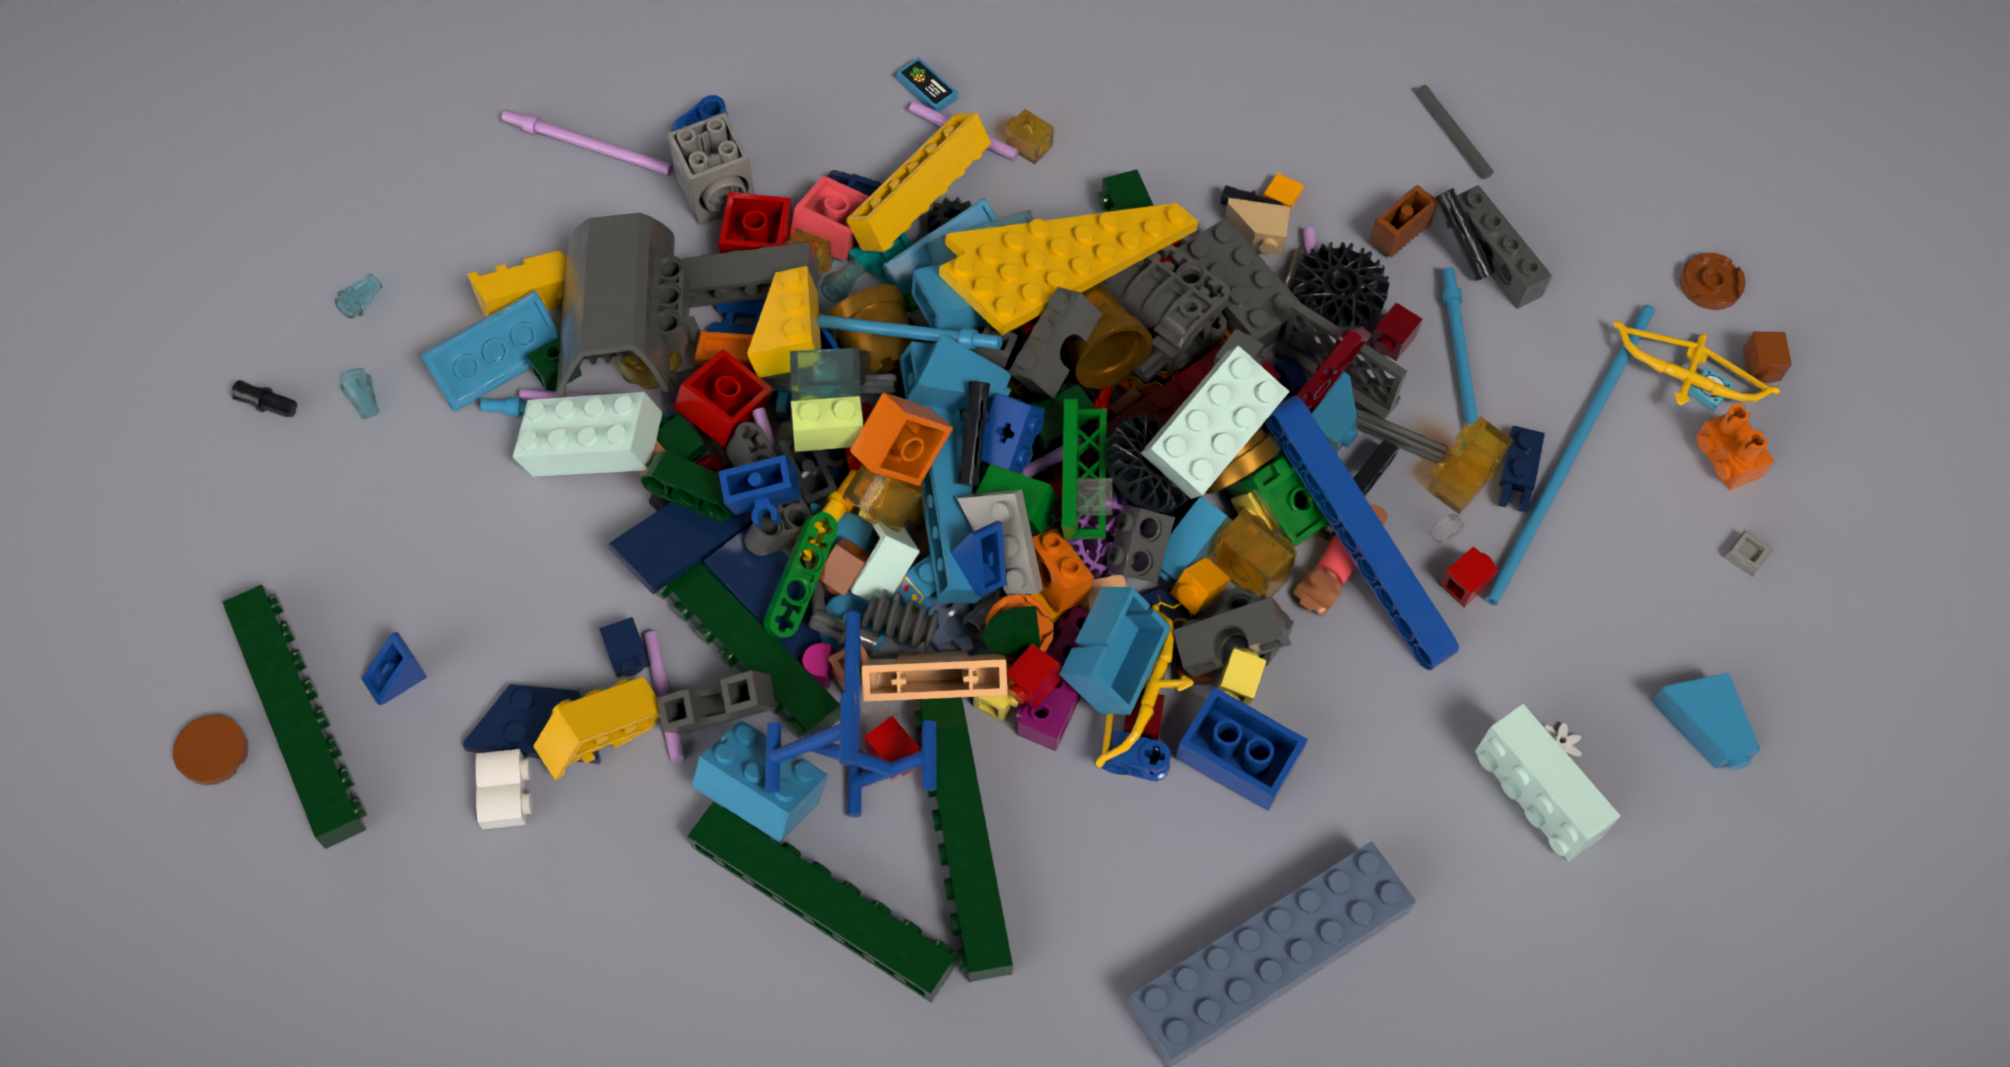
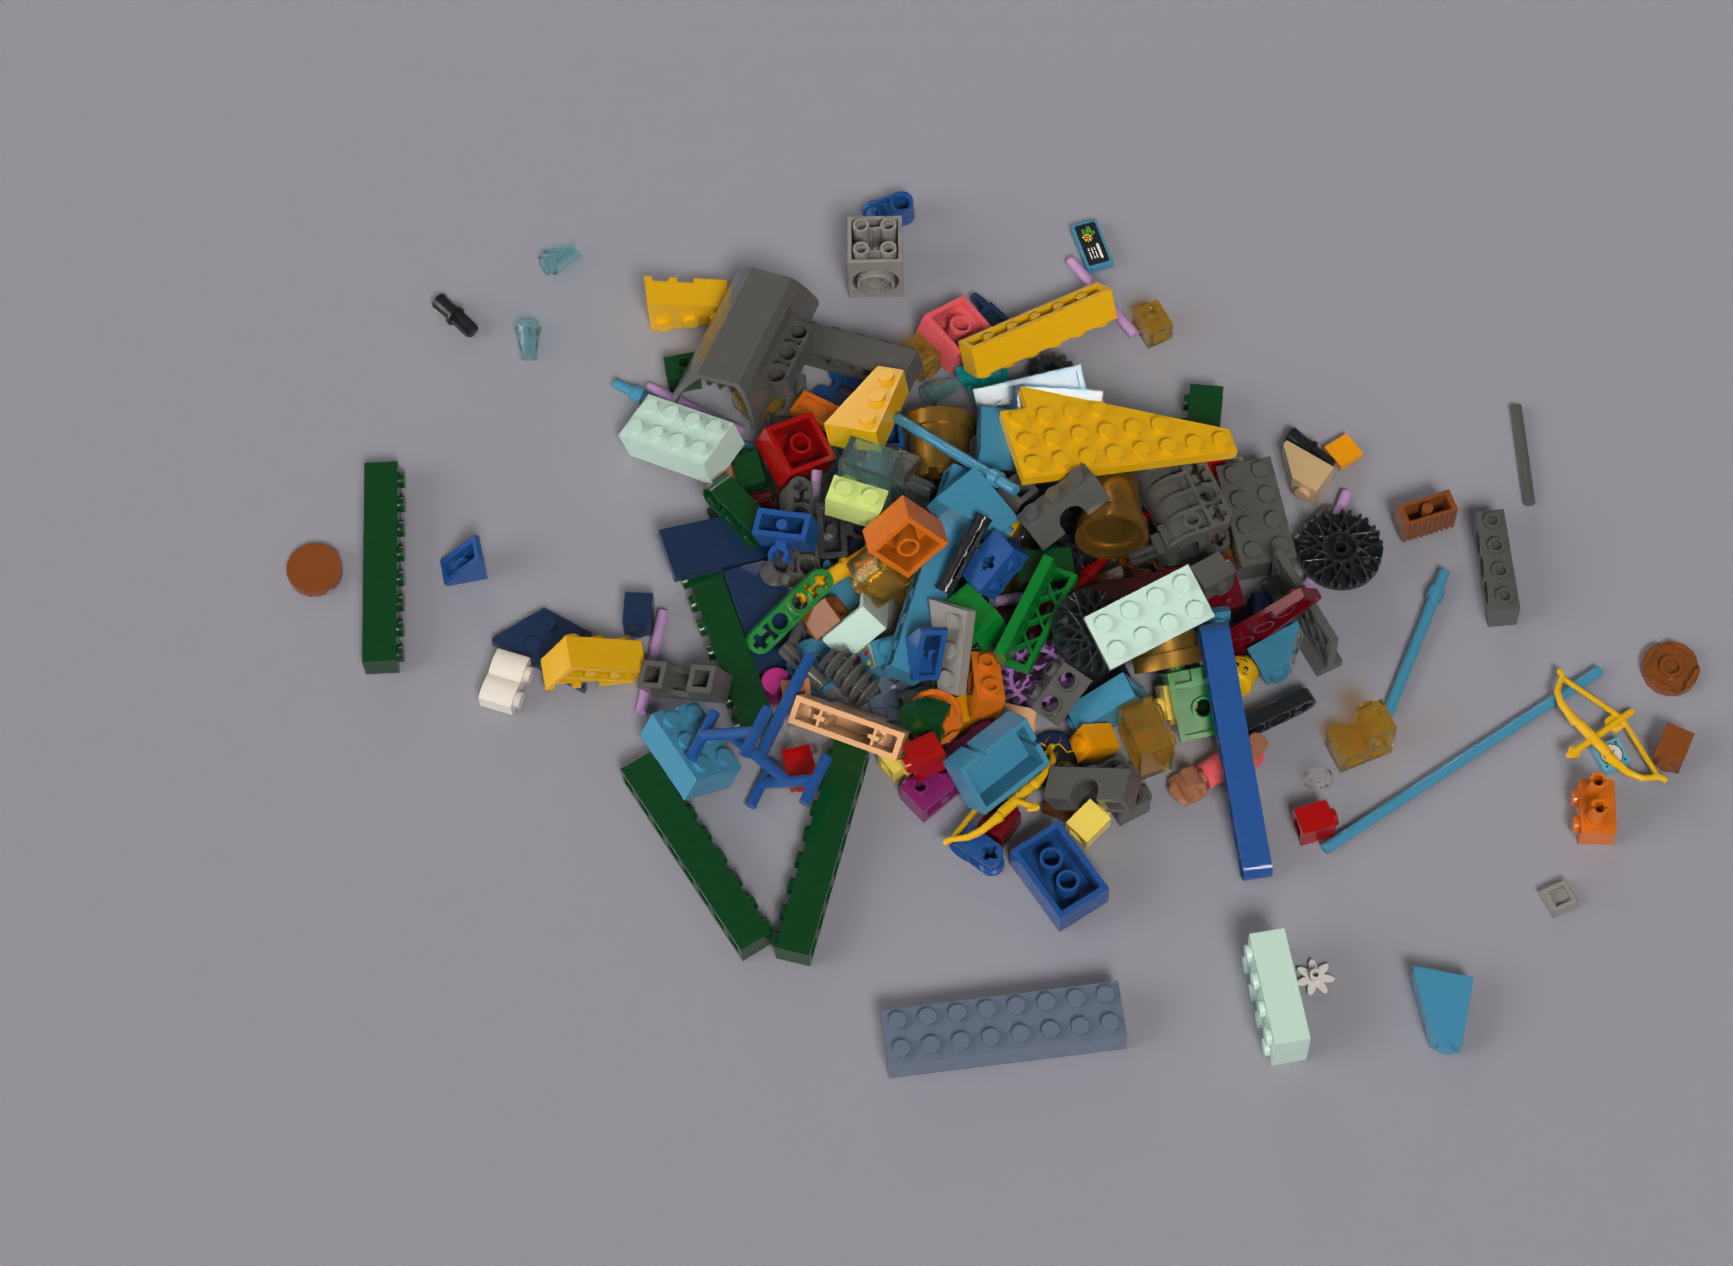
camera: 30 degrees right, 0 degrees up
(490, 350) = (638, 342): dark azure tile -> none
(534, 125) = (756, 163): lavender bar -> none
(755, 222) = (888, 316): red brick -> none
(1095, 496) = (1033, 639): clear tile -> none
(1395, 331) = (1367, 605): dark red brick -> none
(1401, 436) = (1324, 691): dark grey axle -> none
(1447, 201) = (1469, 546): black pin -> none
(1521, 466) = (1411, 754): dark blue hinge -> none

